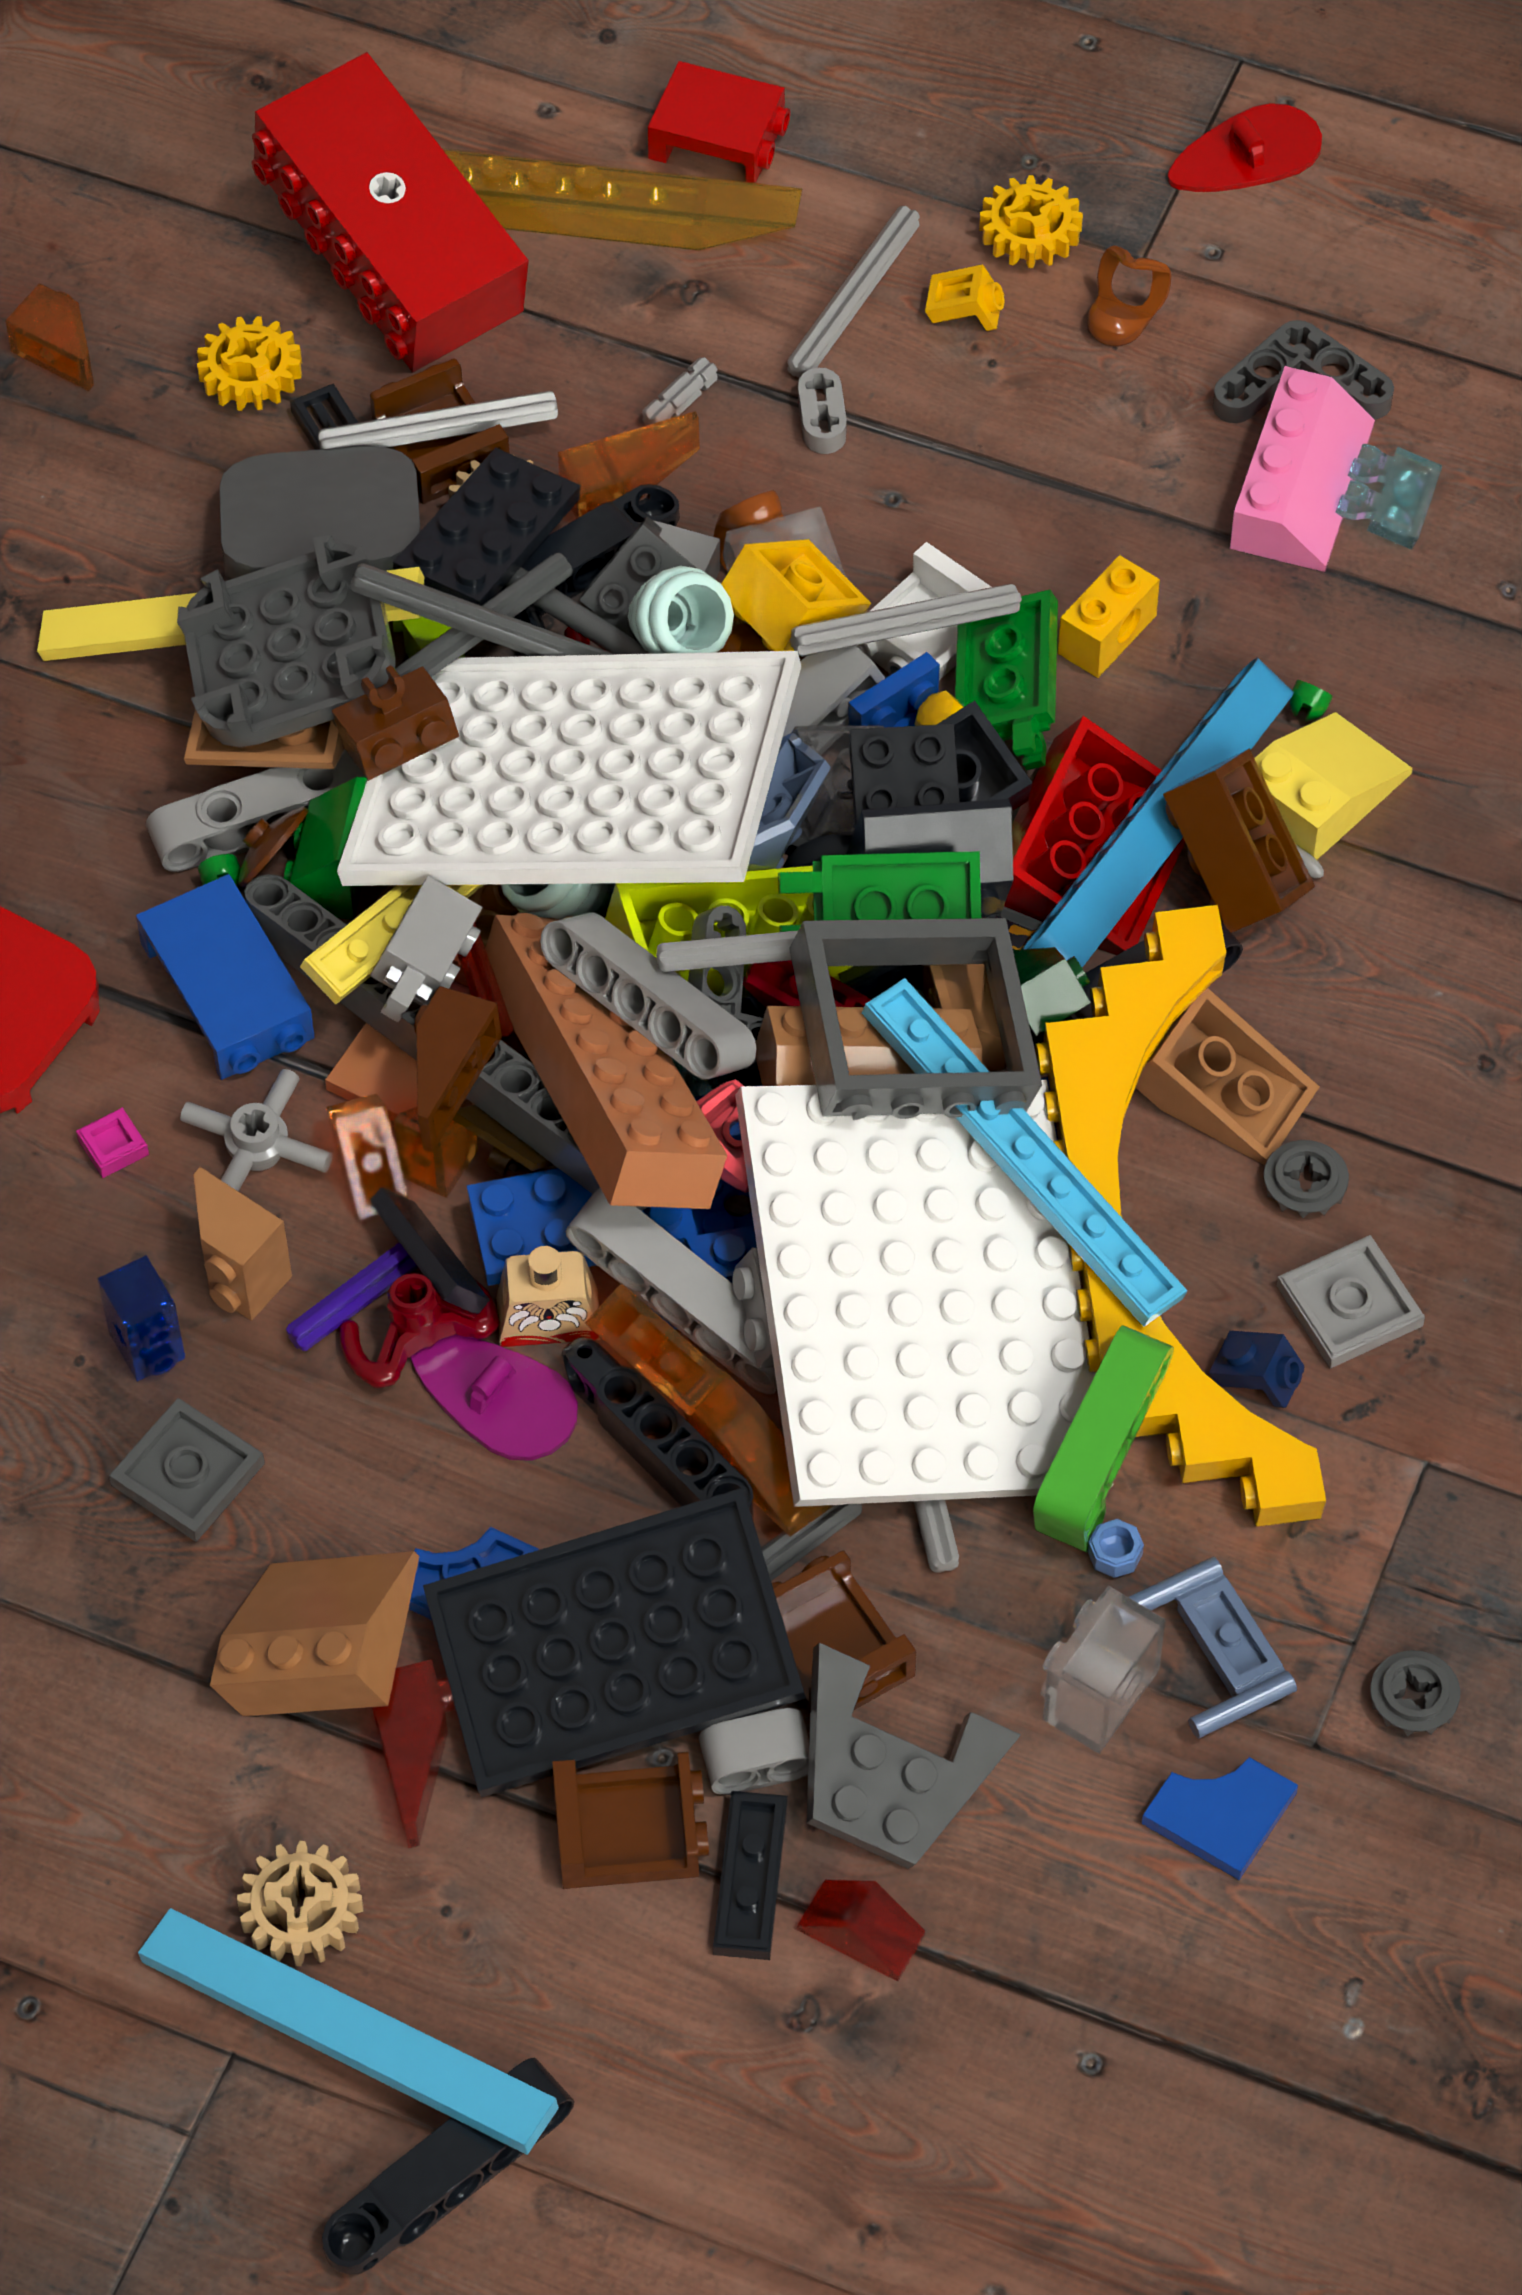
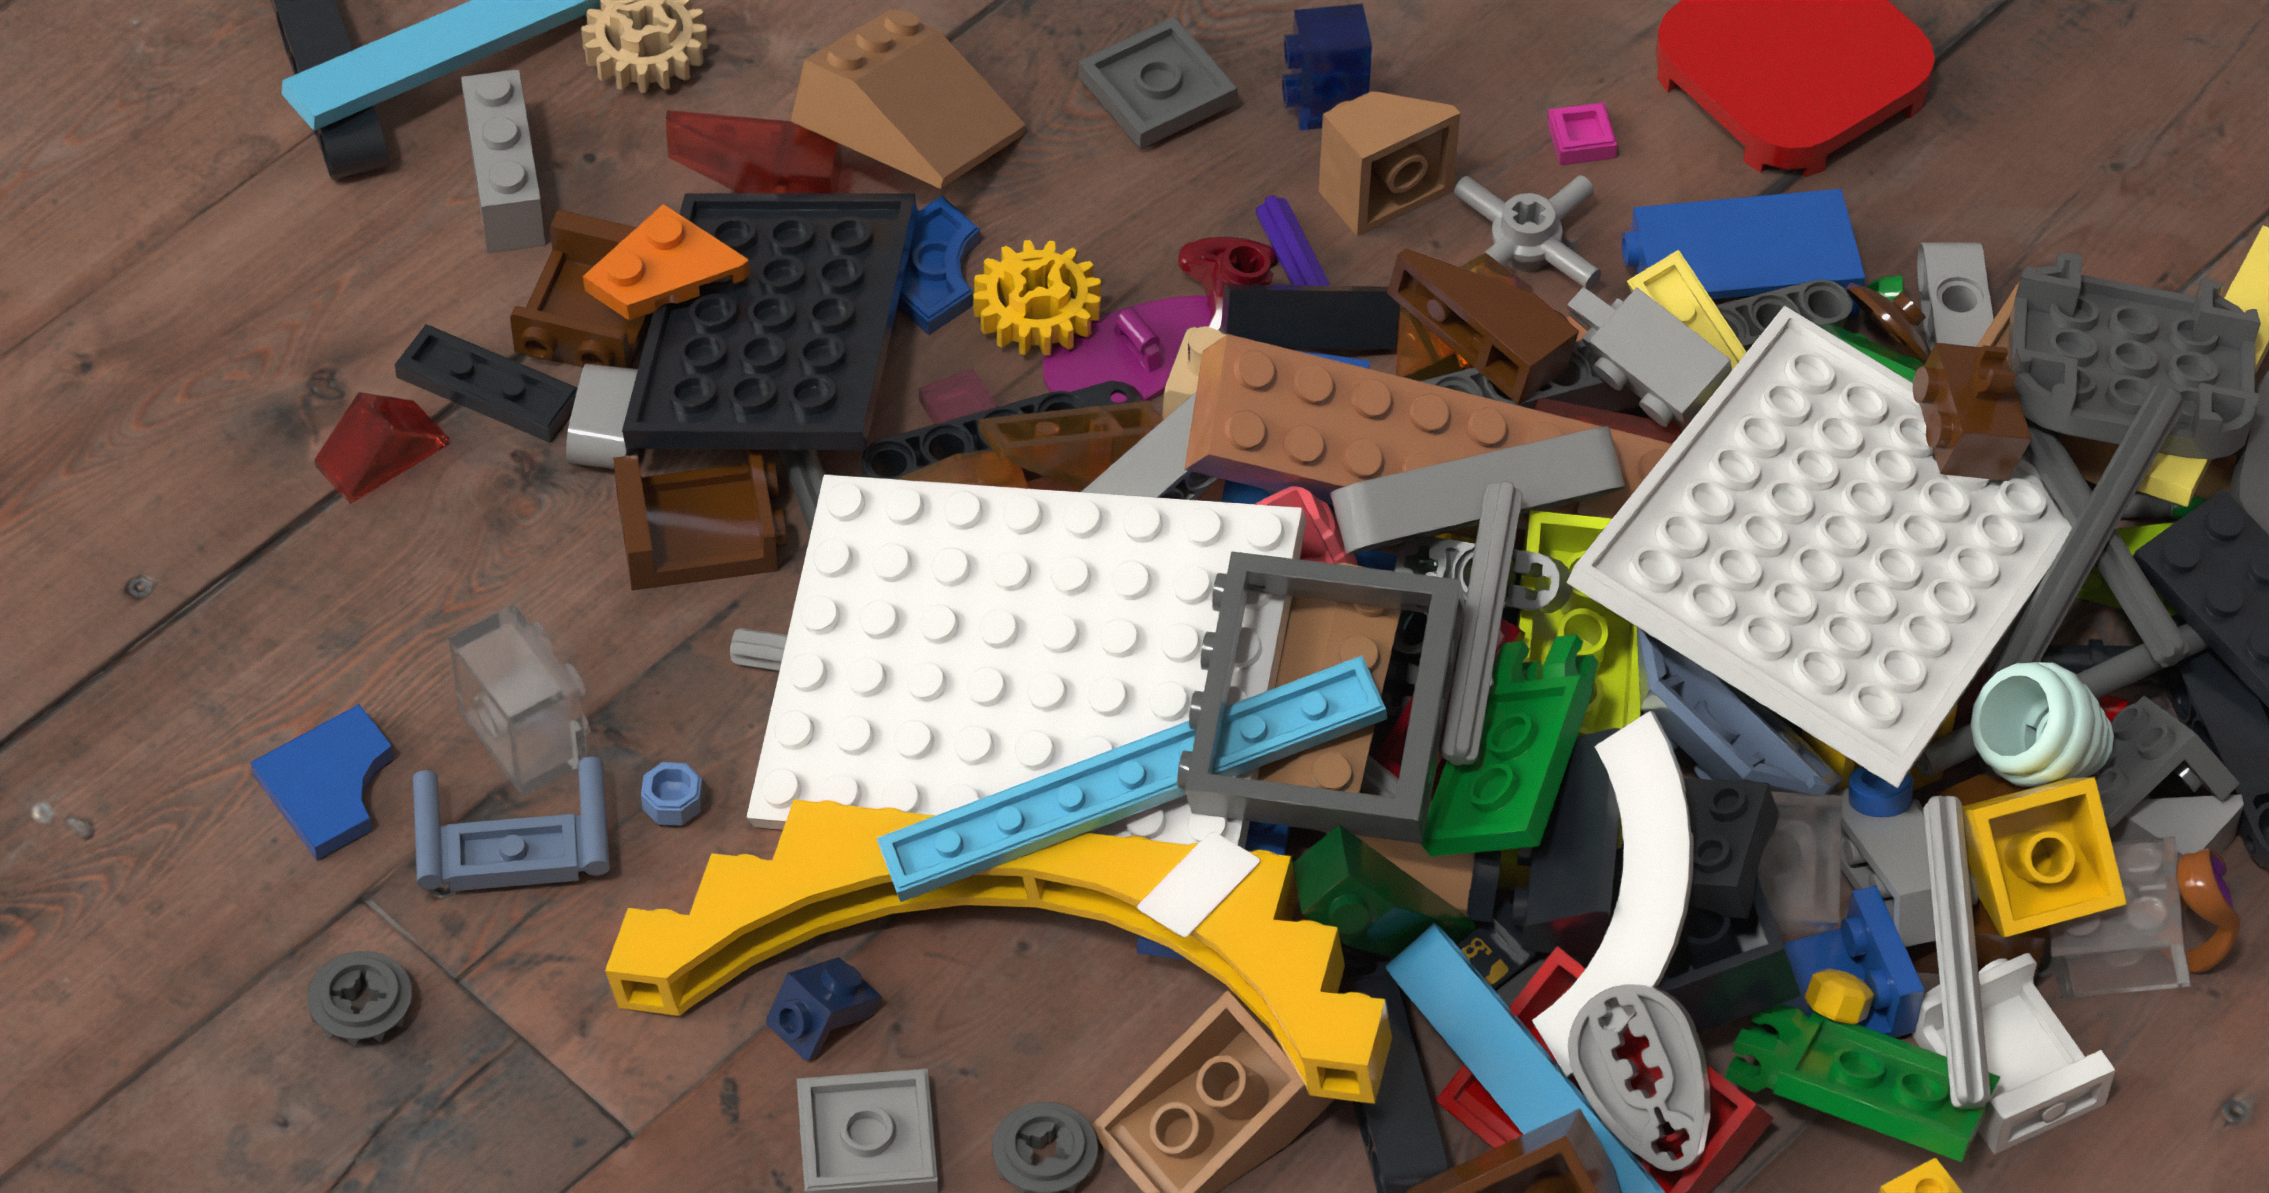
camera: 110 degrees right, 5 degrees down
(475, 1449) = (1037, 297): none -> yellow gear
(505, 1954) = (503, 161): none -> light grey brick
(599, 1744) = (661, 265): none -> orange wing
(616, 1495) = (955, 397): none -> clear pink tile
(880, 1786) = (510, 487): dark grey wing -> none
(973, 775) = (1653, 881): none -> white tile
(1088, 758) = (1606, 1083): none -> light grey piece
(1095, 1079) = (1198, 884): none -> white sticker
(1099, 1438) = (749, 749): bright green beam -> none

